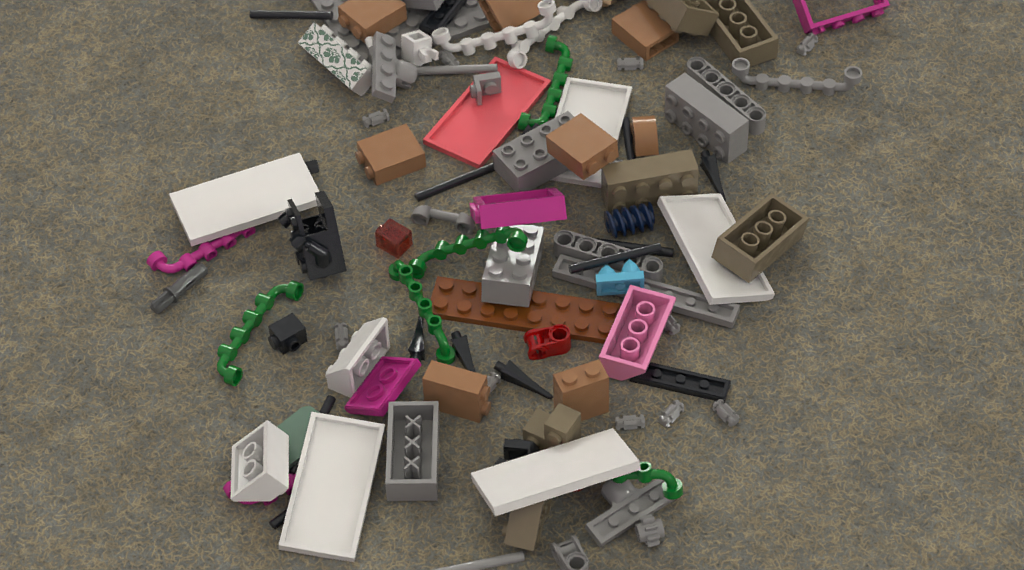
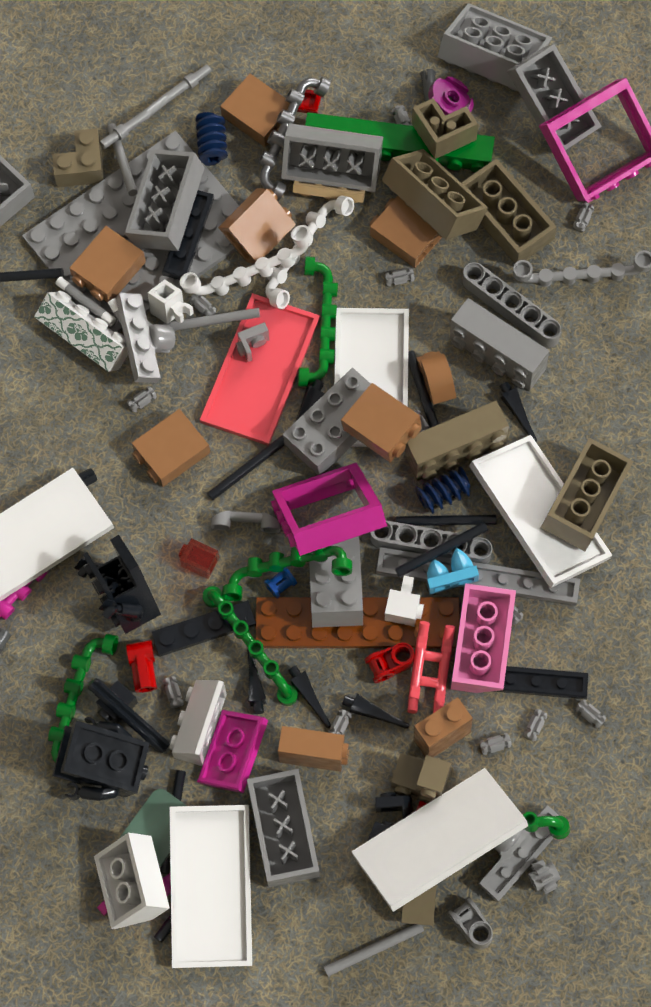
camera: 10 degrees left, 20 degrees up
(258, 367) = (101, 759): none -> black torso
(294, 339) = (128, 715): none -> black axle
(319, 311) = (141, 660): none -> red piece
(346, 37) = (85, 301): none -> light grey bar
(377, 294) = (199, 630): none -> black plate
(462, 267) = (276, 589): none -> blue bush
(569, 295) = (403, 606): none -> white brick
(578, 339) = (422, 655): none -> coral piece

